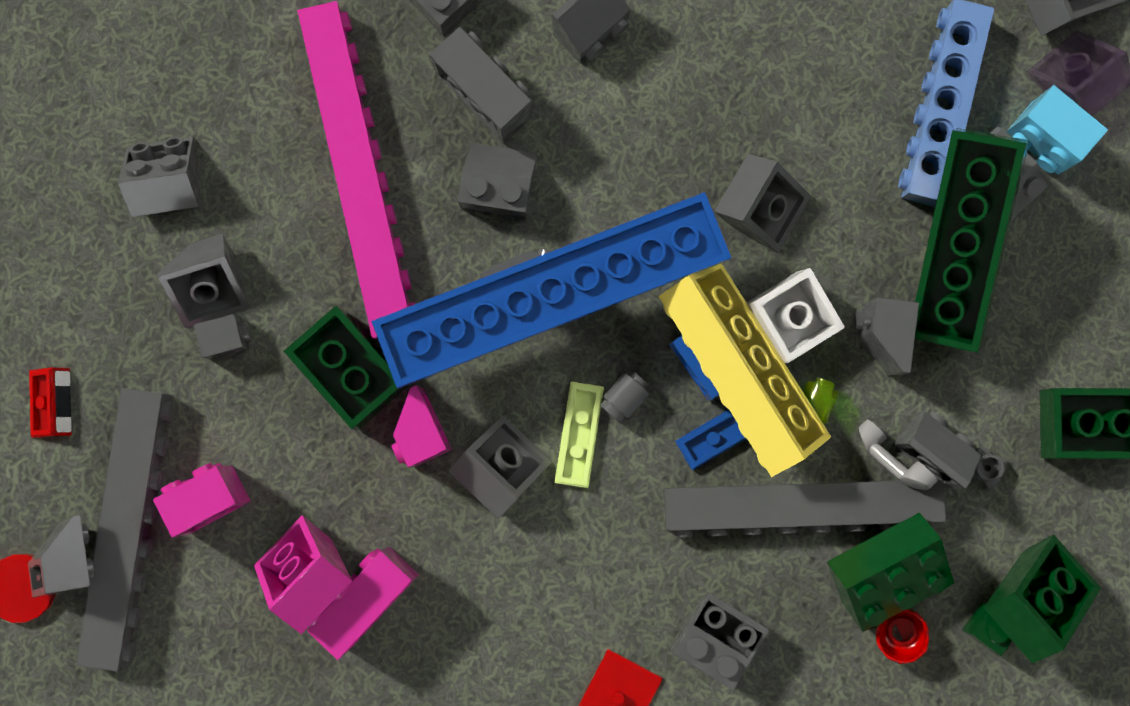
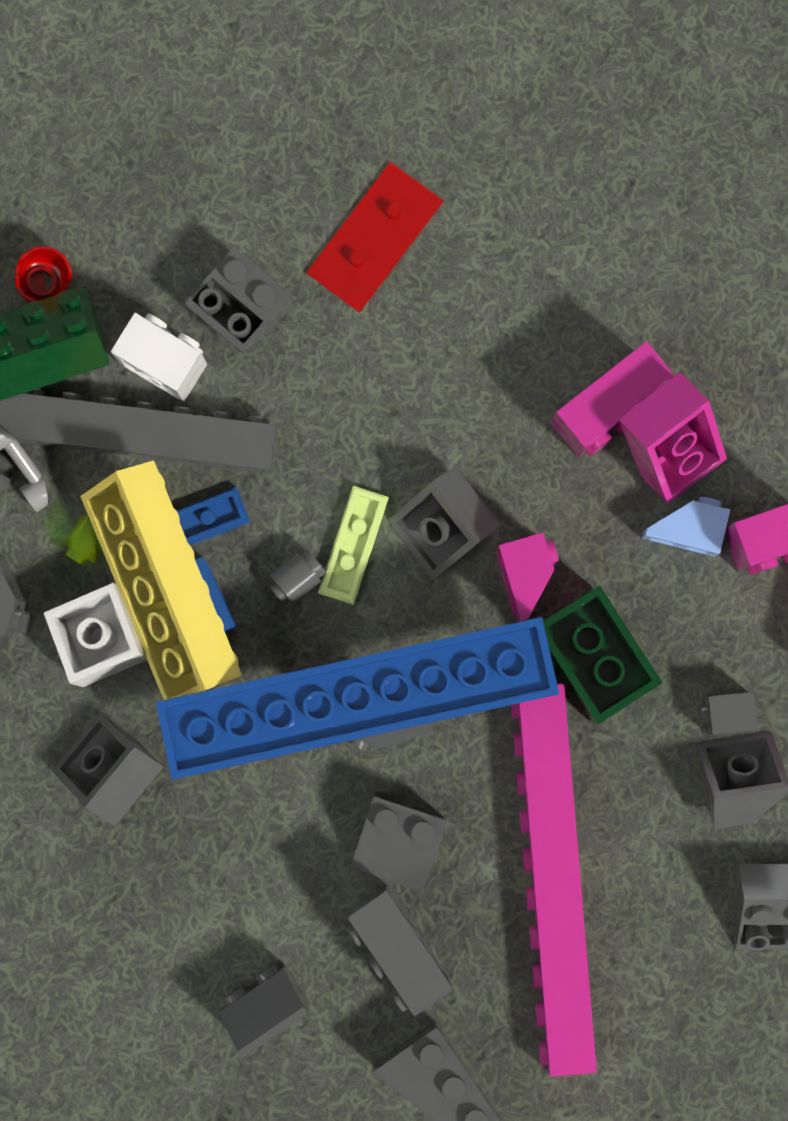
camera: 175 degrees left, 0 degrees up
(276, 498) = (693, 527): none -> light blue slope
(783, 576) = (159, 356): none -> white brick

